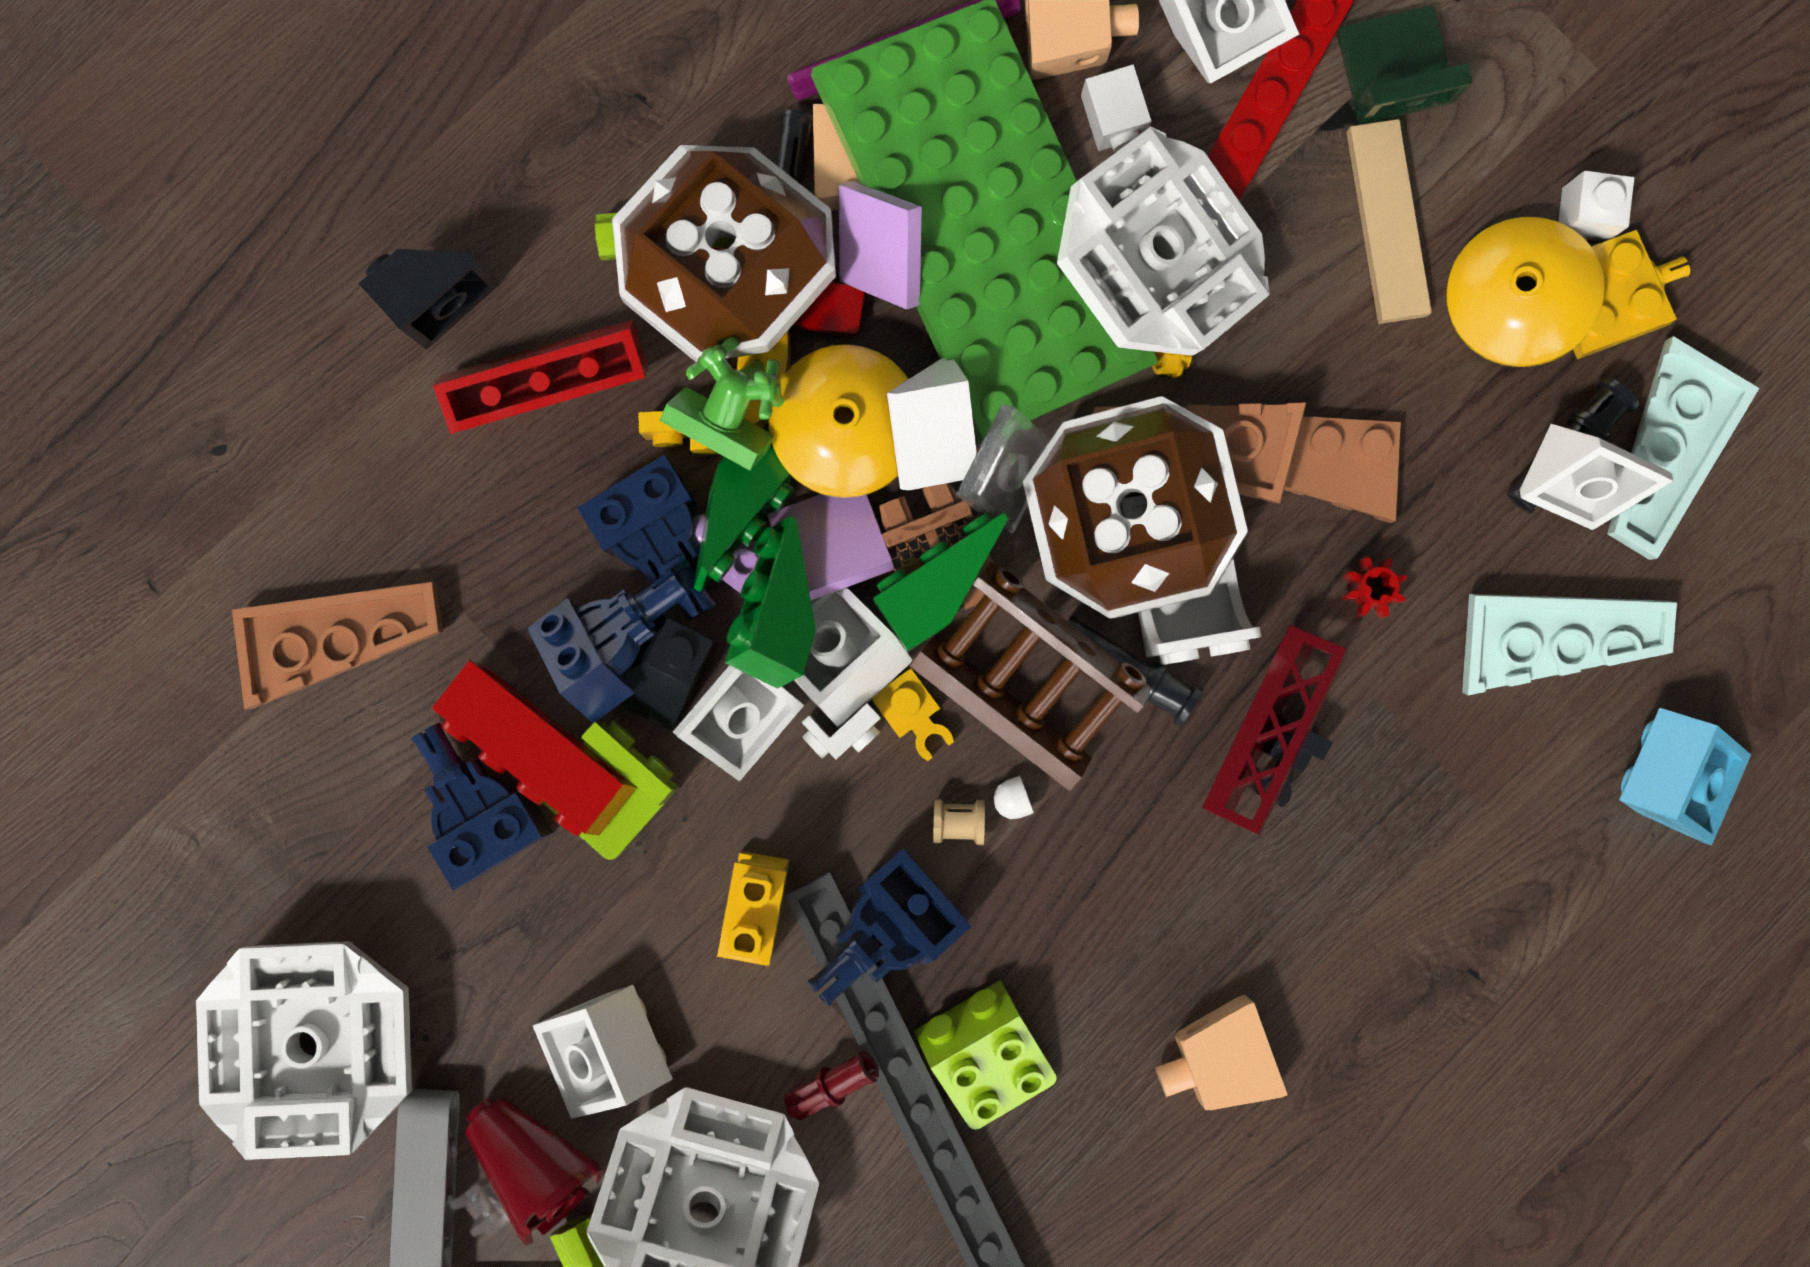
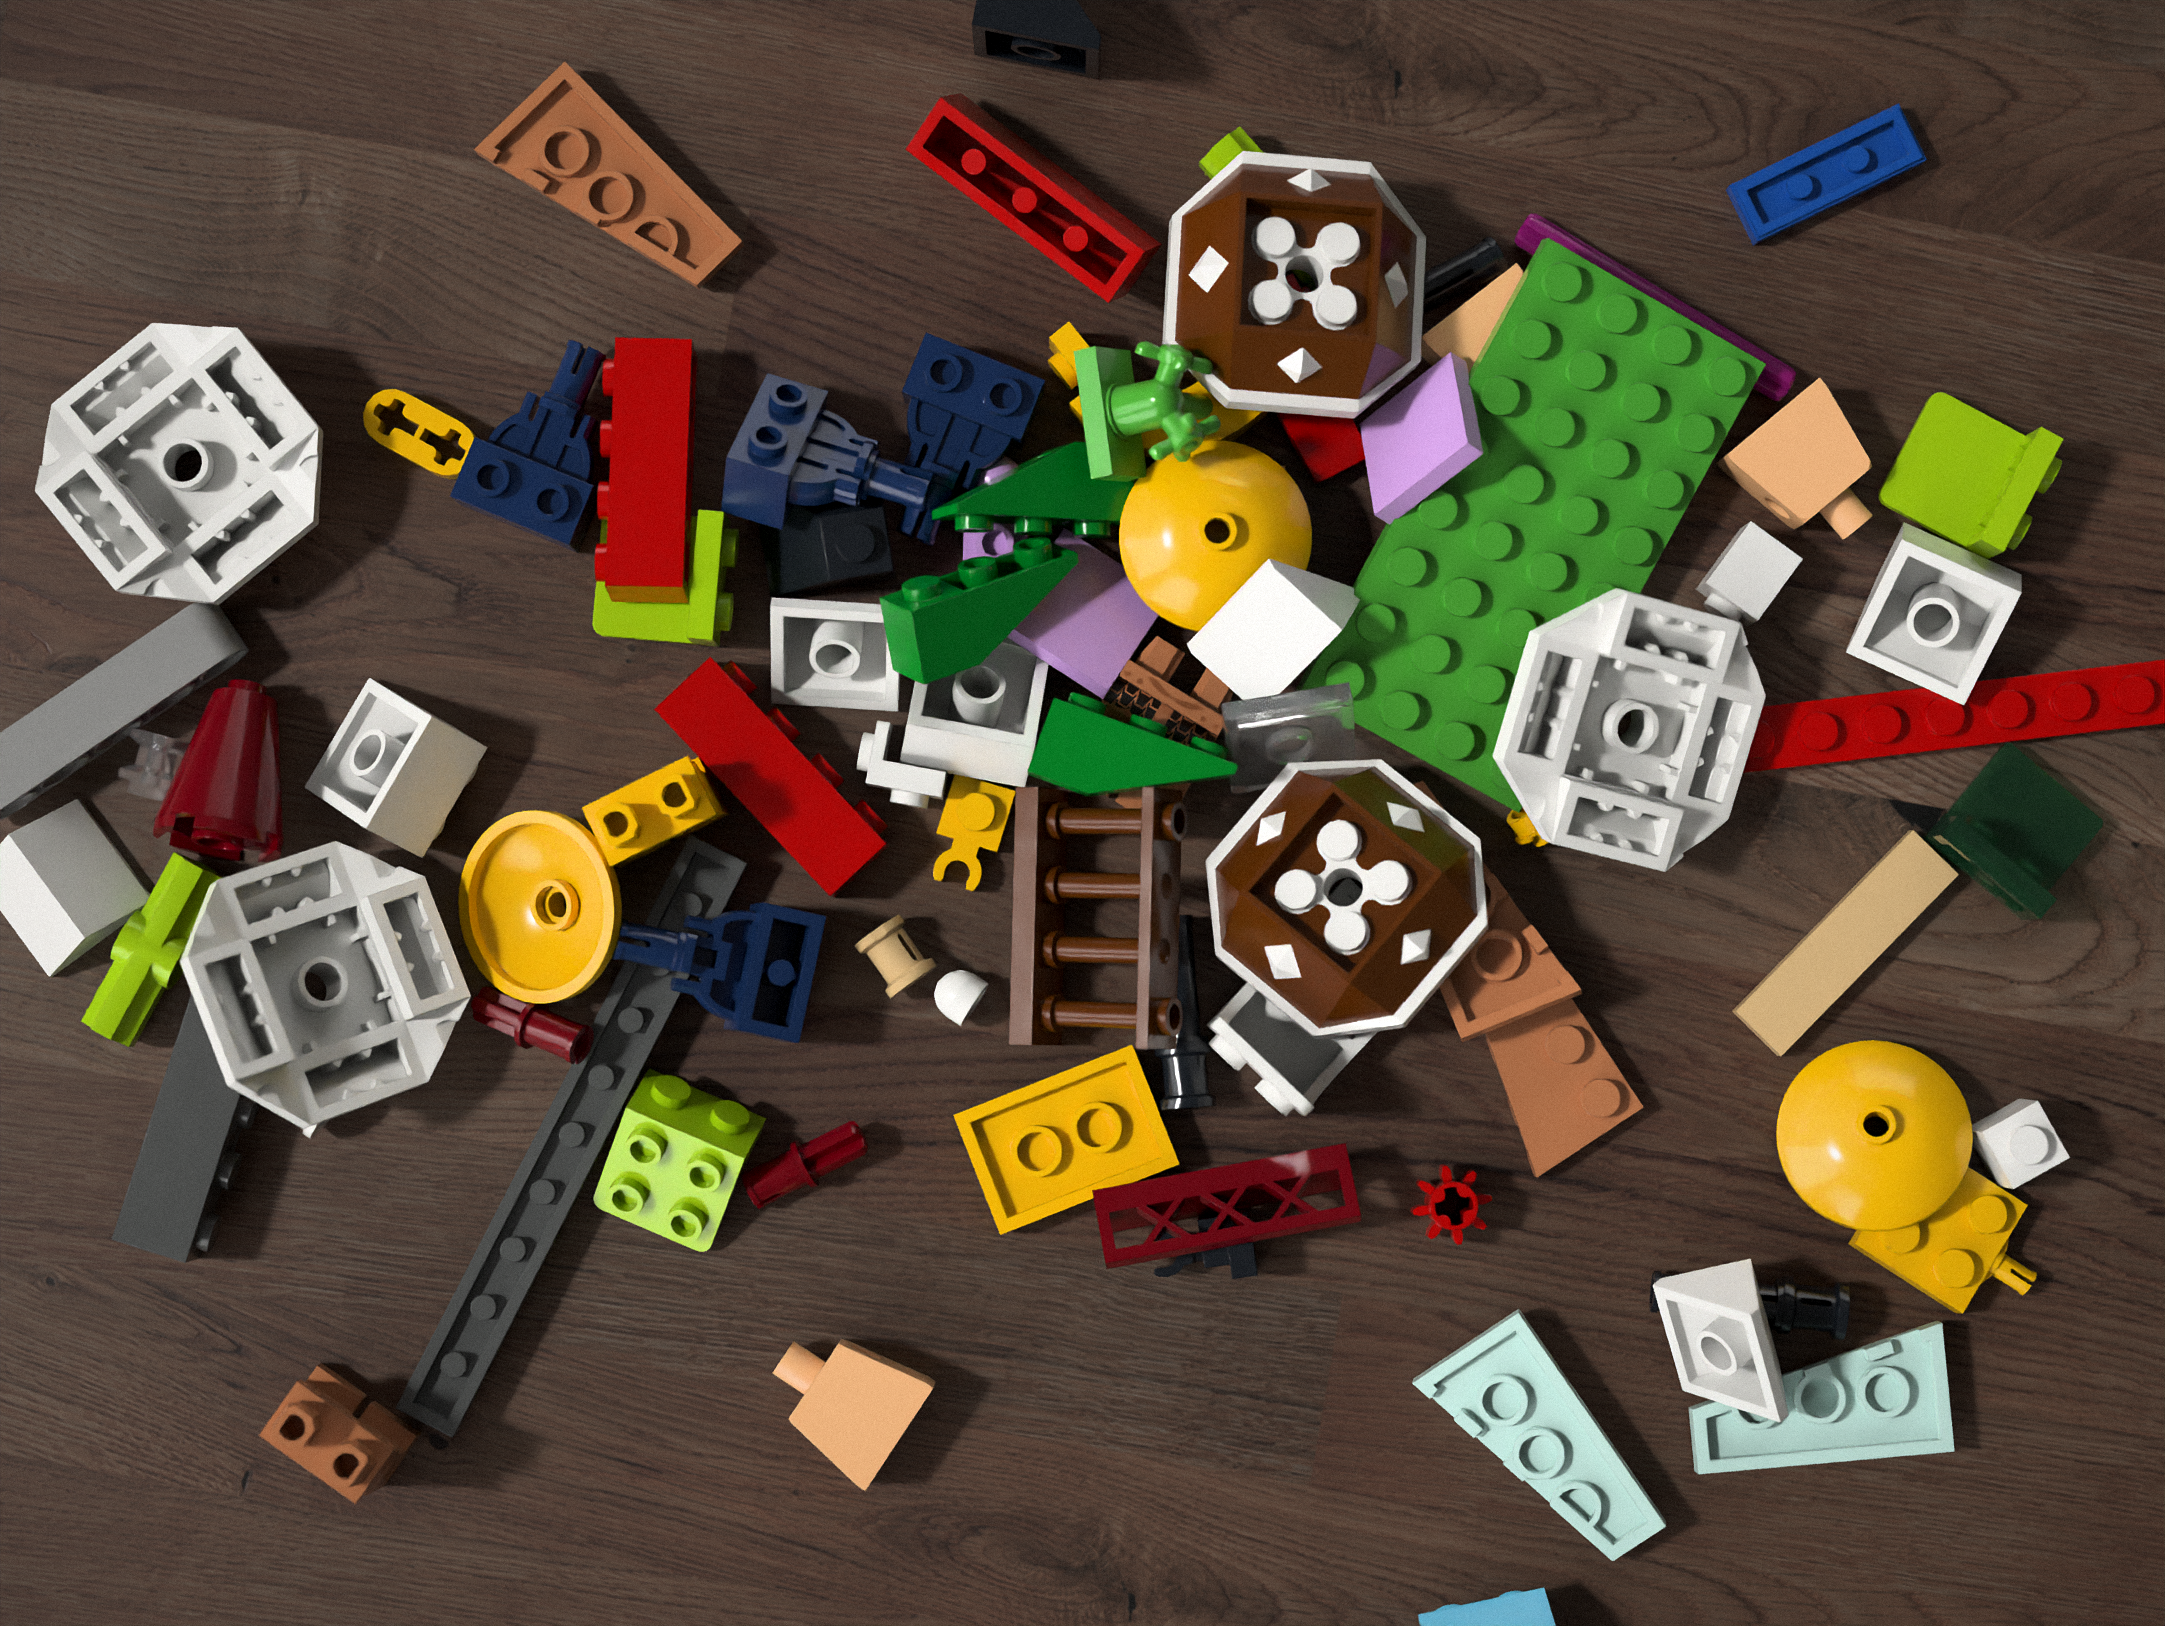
camera: 50 degrees right, 0 degrees up
(396, 867) = (414, 447): none -> yellow beam
(760, 1027) = (517, 913): none -> yellow dish
(786, 815) = (771, 775): none -> red brick
(1048, 977) = (804, 1164): none -> dark red axle
(1154, 799) = (1064, 1138): none -> yellow plate

